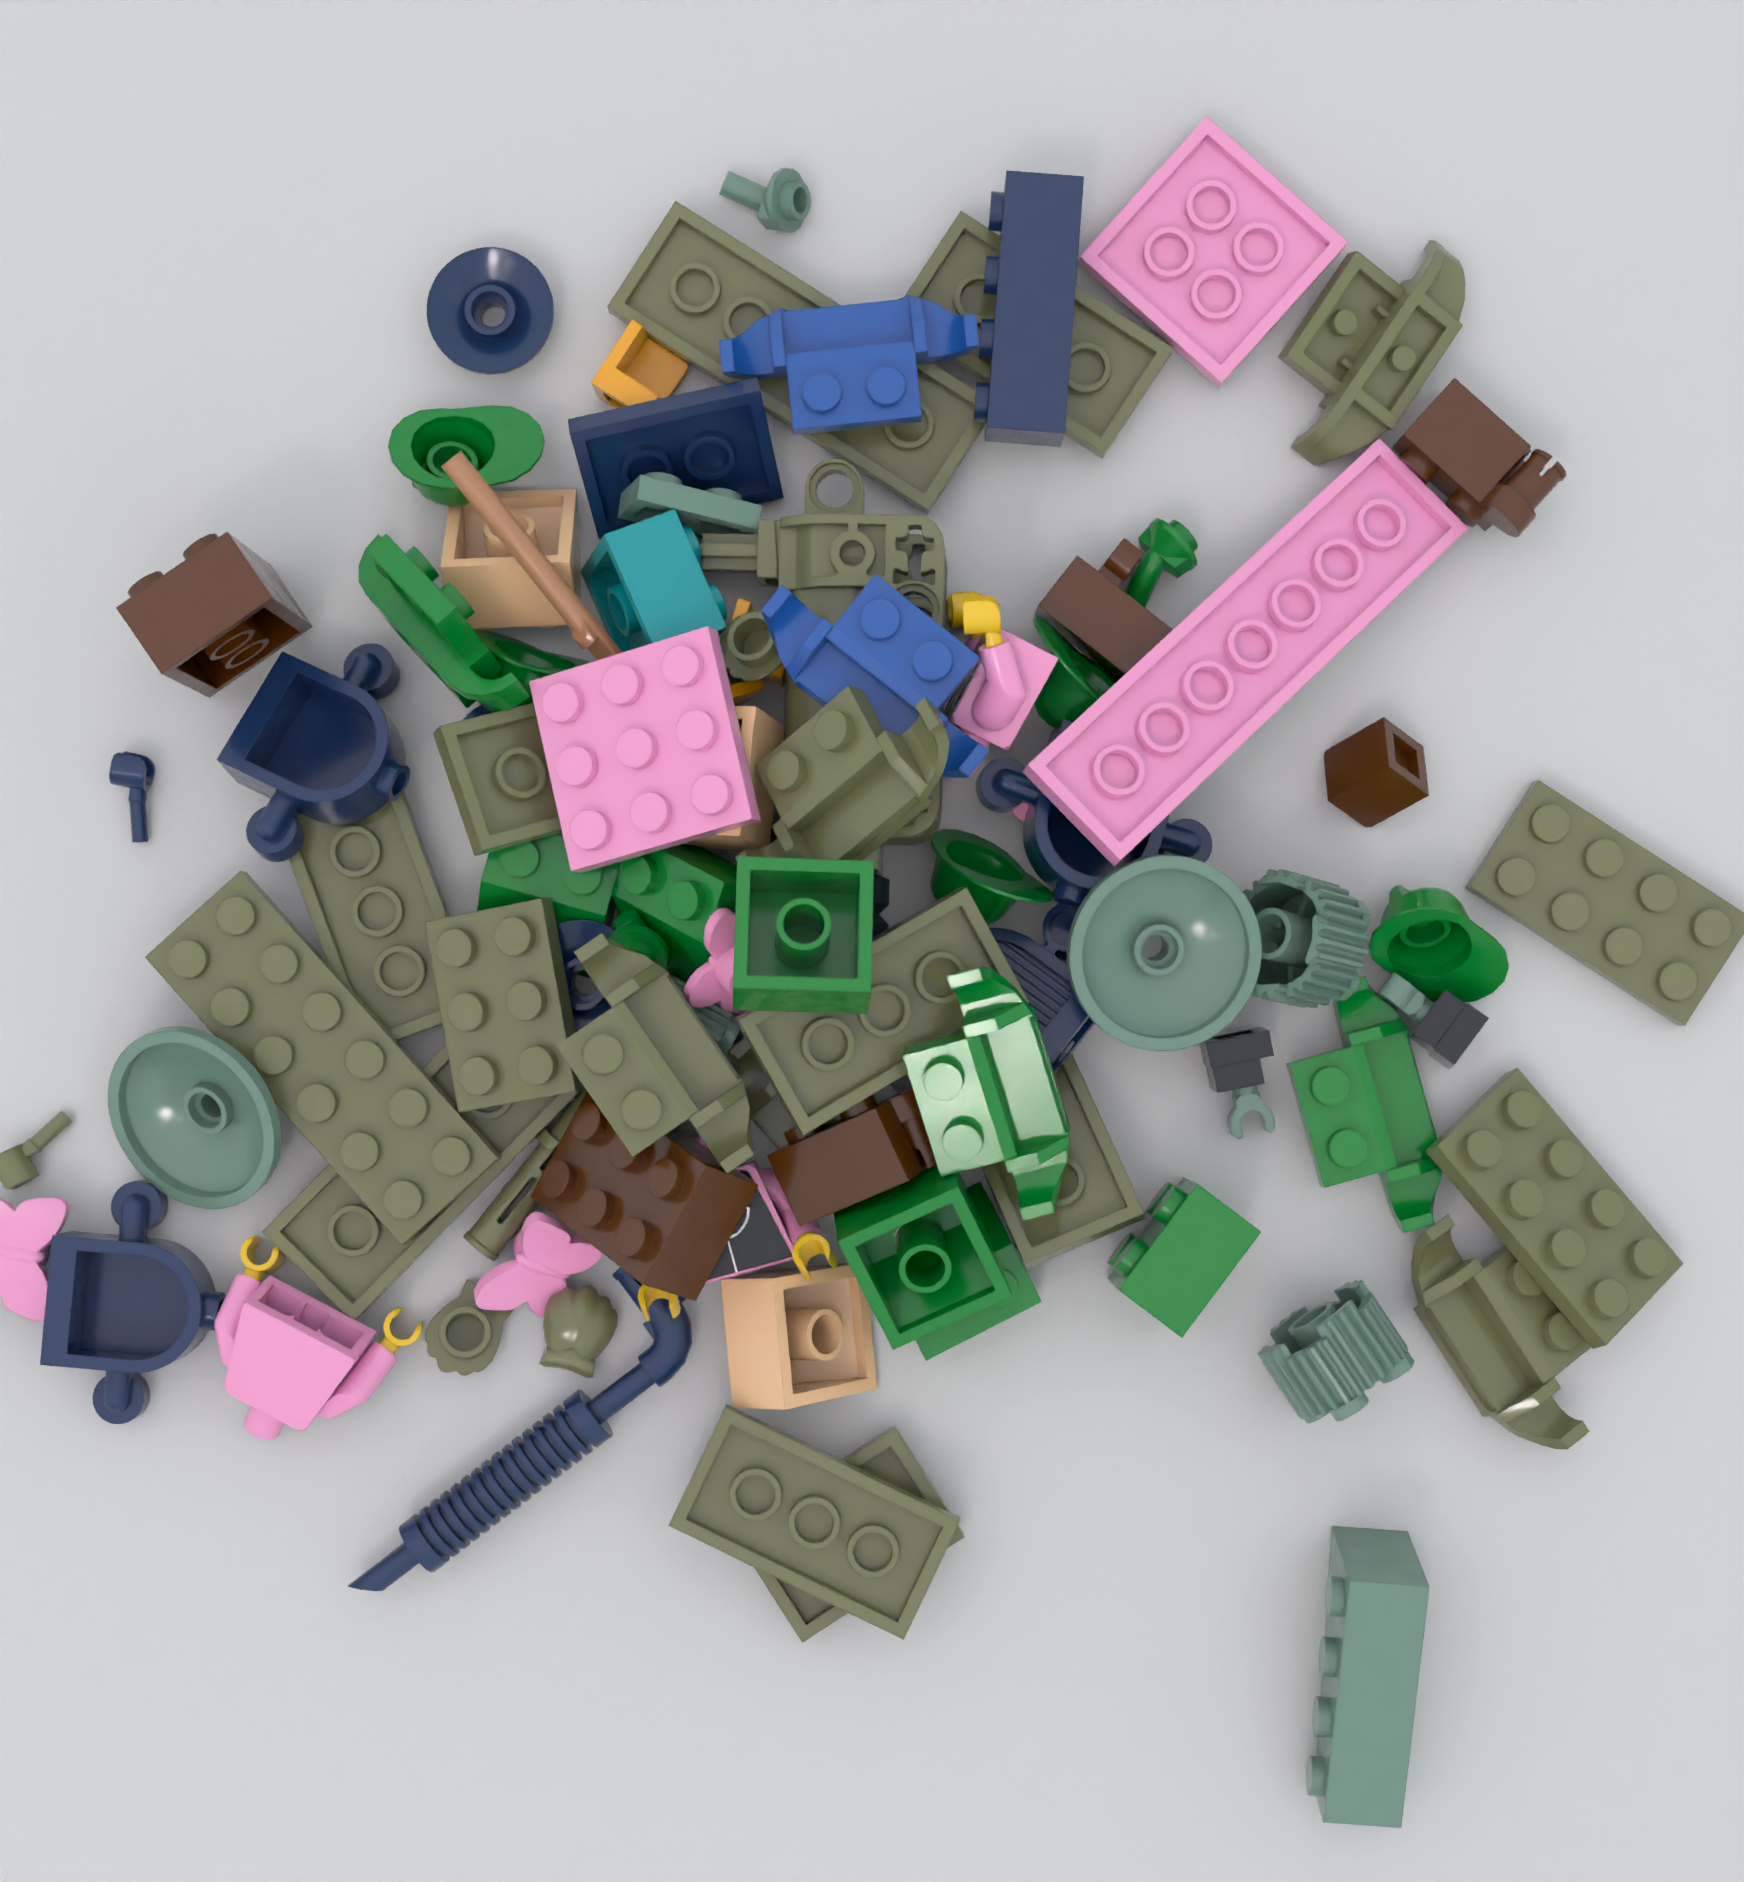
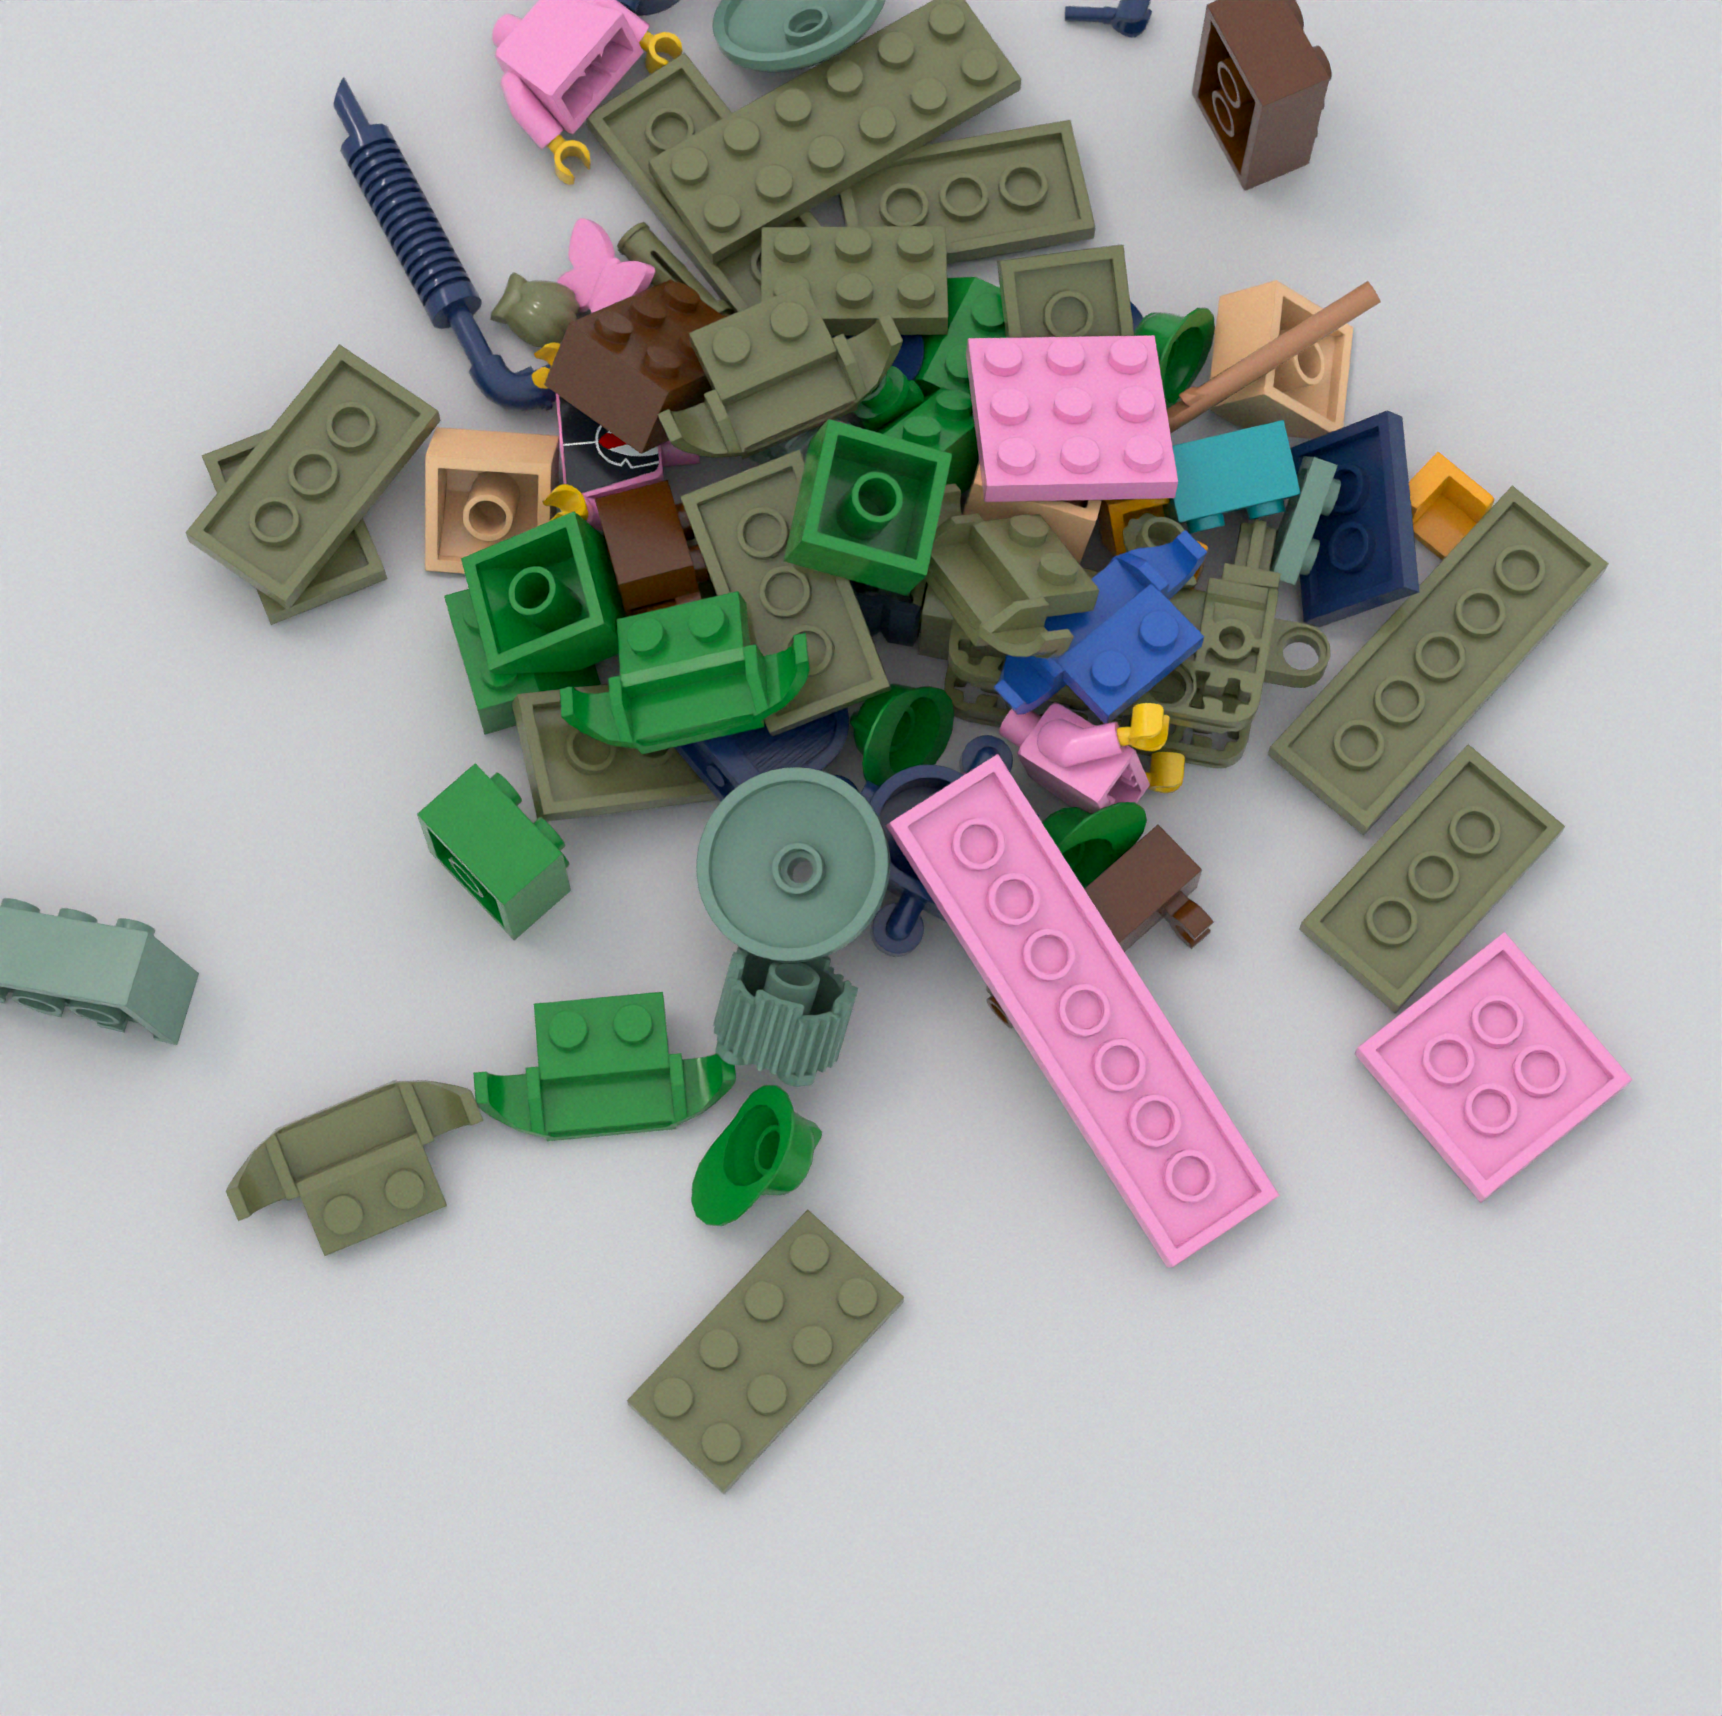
camera: 95 degrees right, 15 degrees down
(317, 748) = (1126, 164): dark blue piece -> none
(435, 625) = (1224, 267): green plate -> none
(464, 1335) = (550, 212): olive animal -> none
(482, 281) = (1528, 358): dark blue dish -> none
(495, 439) = (1393, 339): green piece -> none
(779, 205) = (1601, 659): sand green plate -> none
(852, 360) = (1427, 686): blue plate -> none
(1032, 308) = (1454, 864): dark blue brick -> none
(1165, 548) = (1195, 968): green plate -> none
(1235, 1065) = (672, 949): black piece -> none
(1335, 1354) = (369, 979): sand green brick -> none
(1373, 347) = (1376, 1209): olive plate -> none
(1375, 773) = (938, 1135): reddish brown panel -> none
(1443, 1026) = (673, 1154): black piece -> none
(1477, 462) = (1243, 1285): reddish brown hinge -> none
(1555, 1208) = (467, 1231): olive plate -> none

